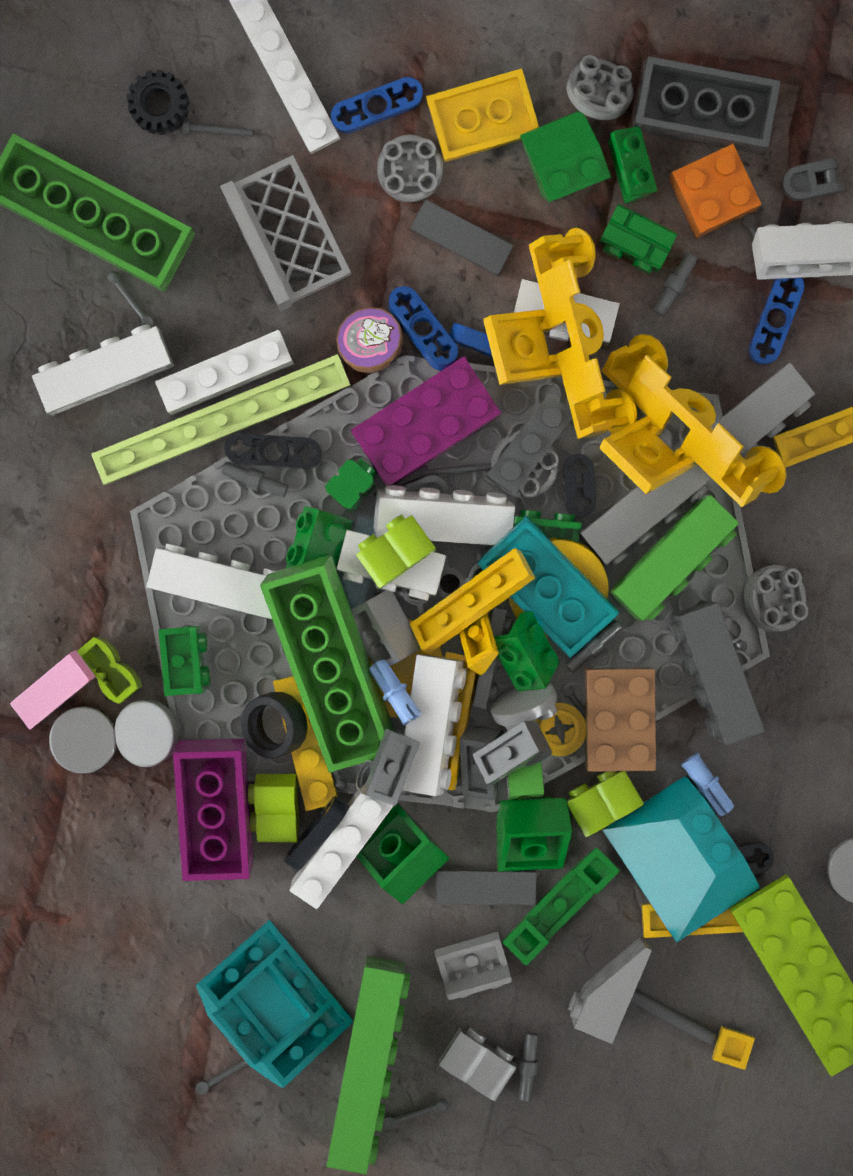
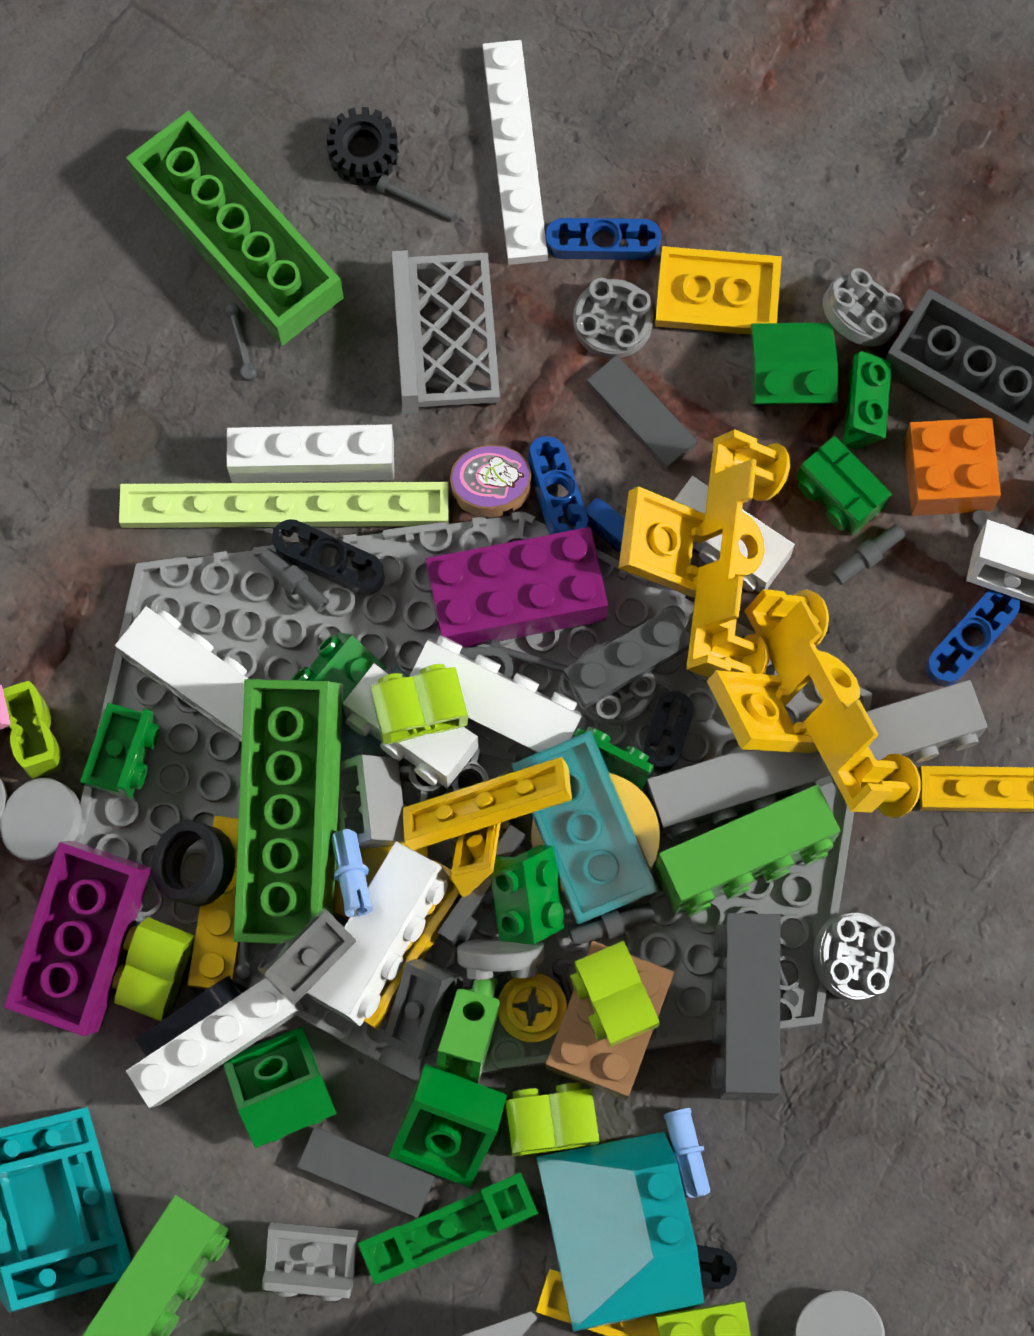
camera: 25 degrees right, 15 degrees down
(102, 370) = (174, 399): white brick -> none
(352, 484) = (401, 620): green brick -> none
(514, 749) = (469, 992): plate -> none
(621, 707) = (615, 994): none -> lime brick

